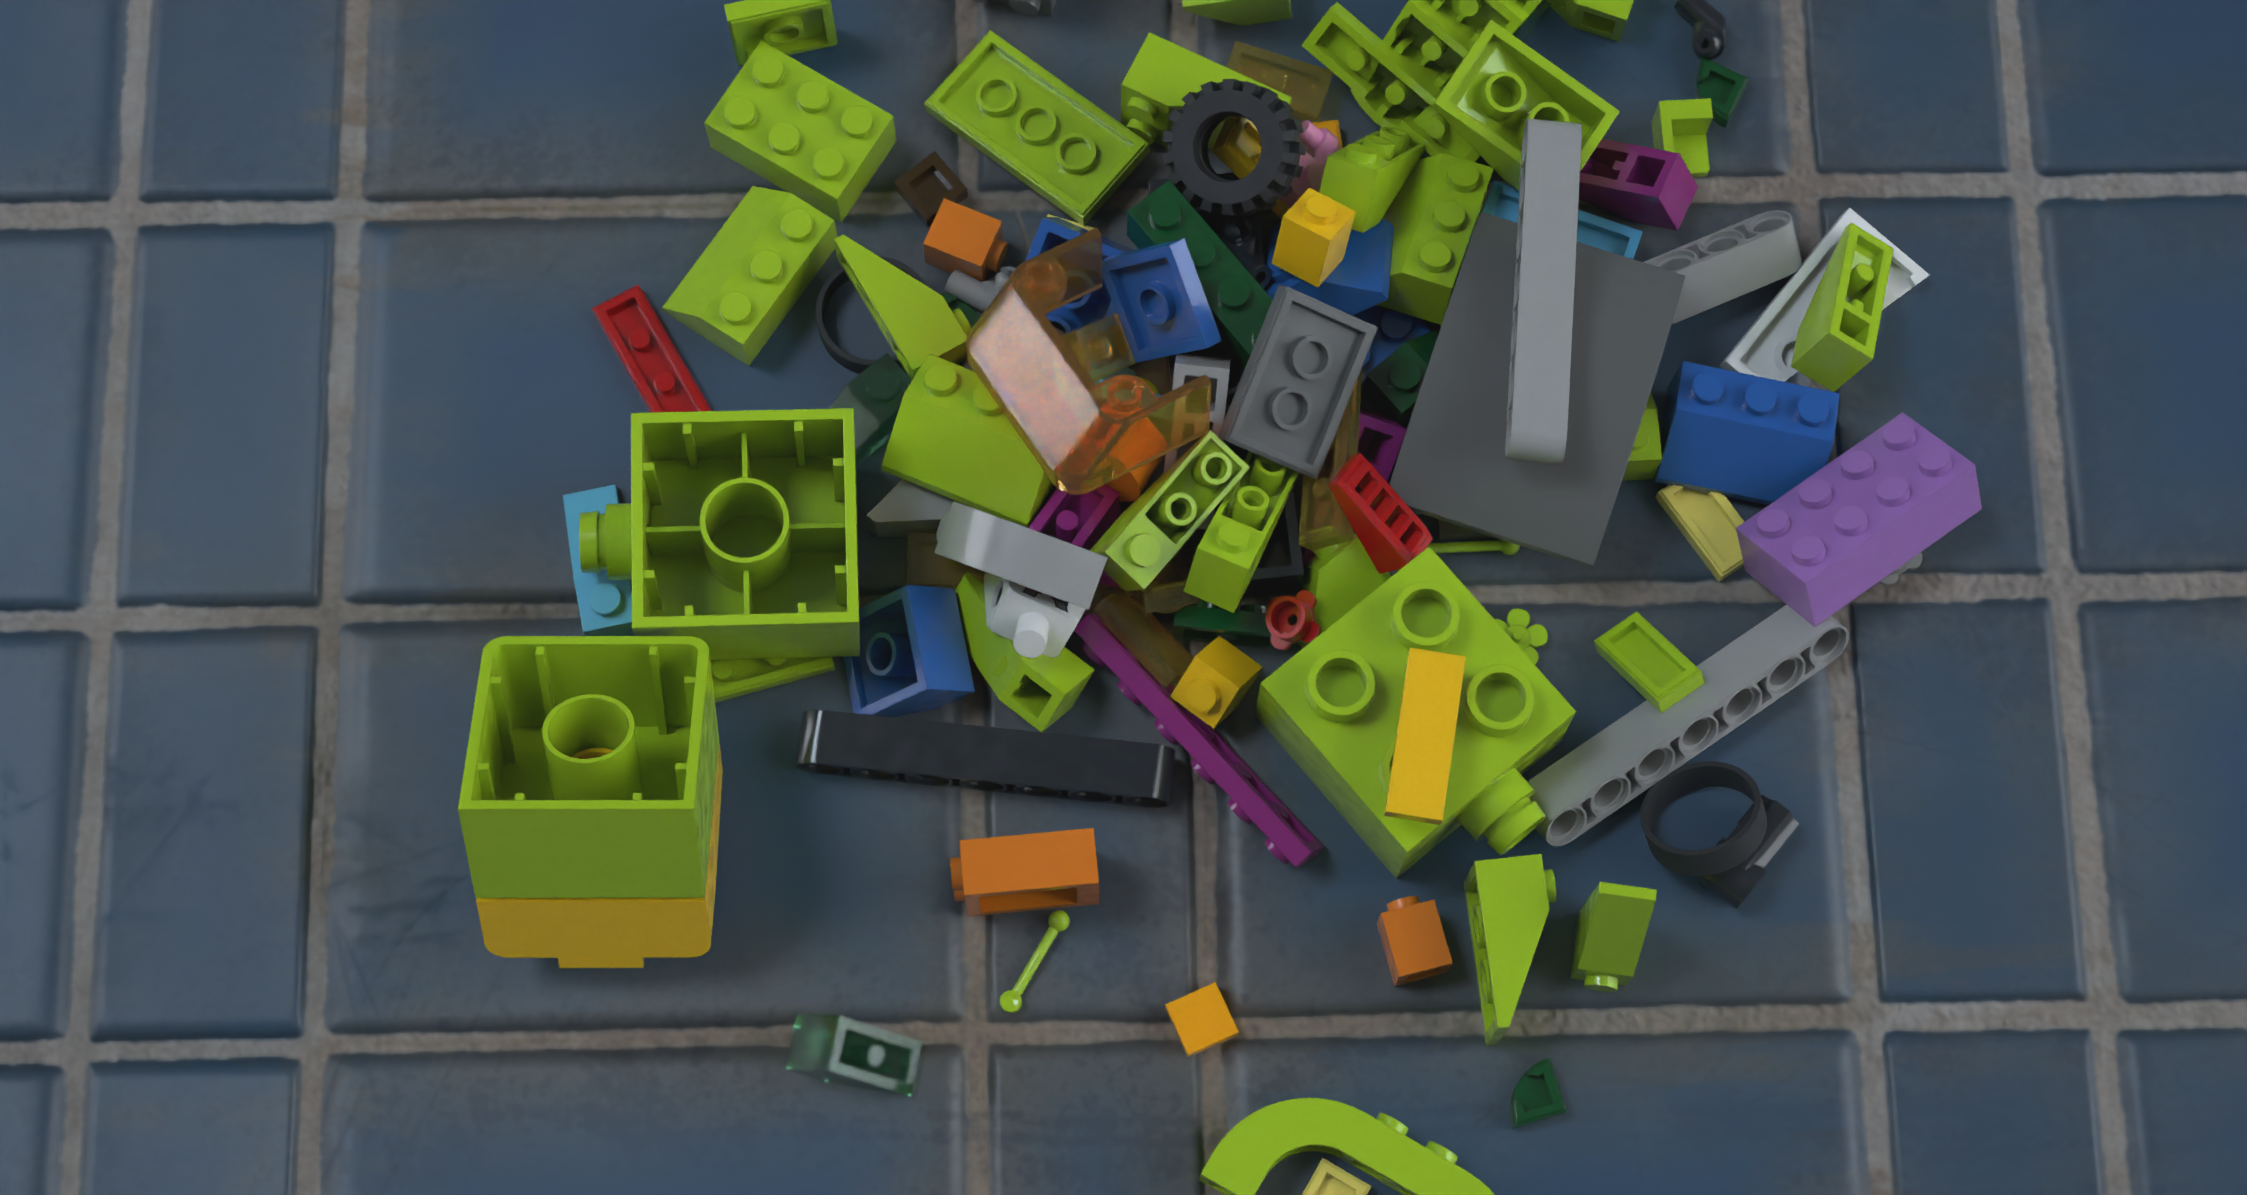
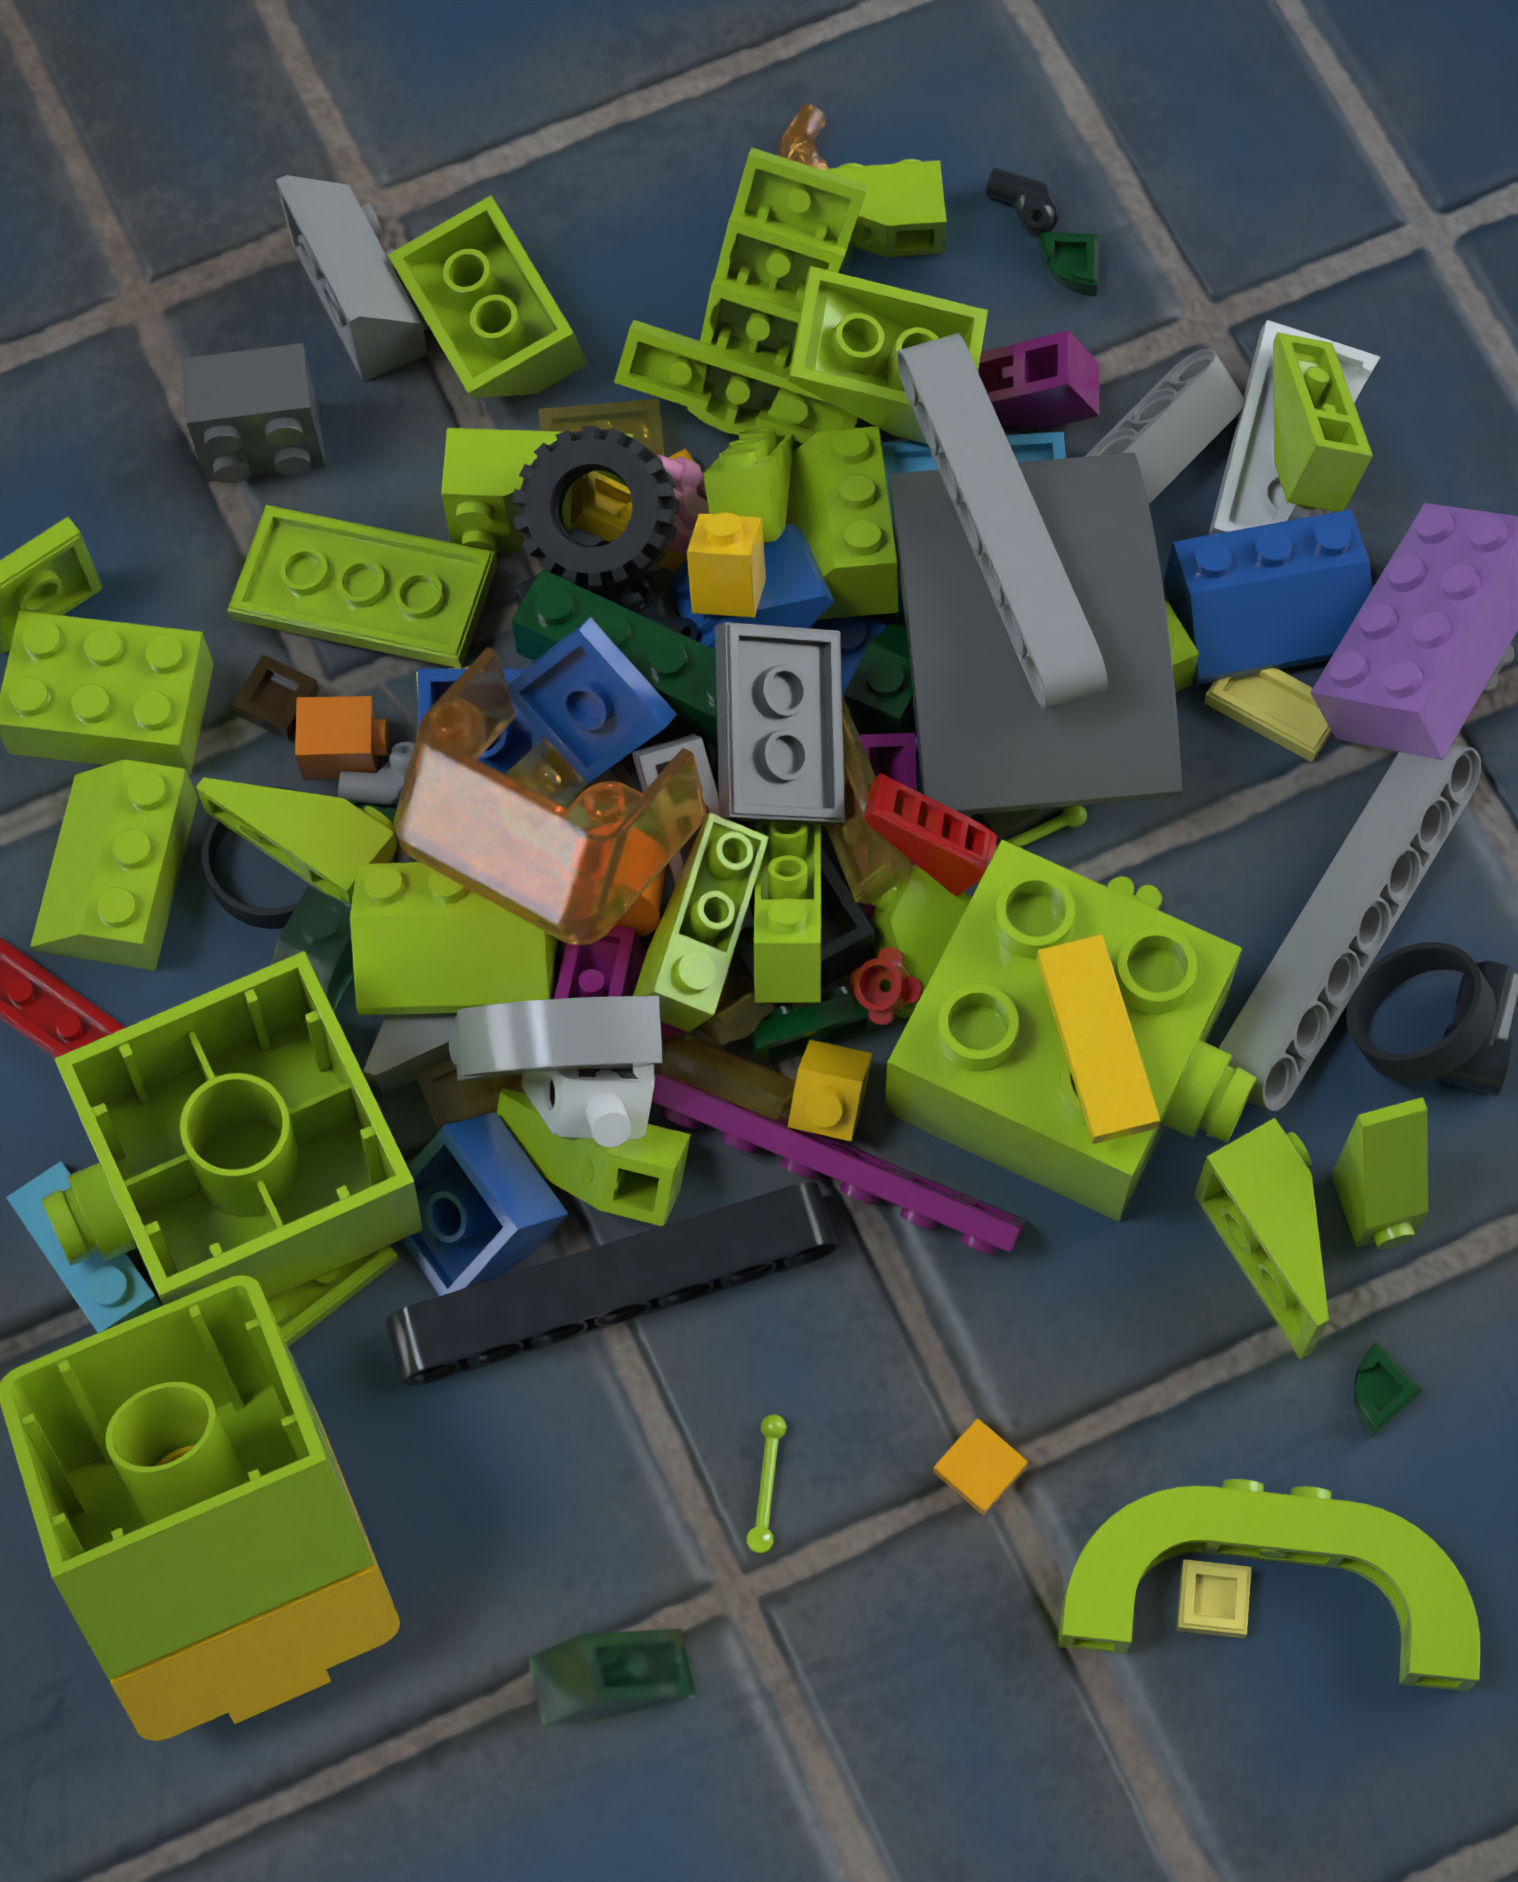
camera: 20 degrees left, 5 degrees down
(1026, 872) = (718, 1385): orange window -> none
(1413, 940) = (1172, 1278): orange brick -> none
(1649, 662) = (1283, 873): lime tile -> none
(1682, 129) = (1054, 307): lime panel -> none

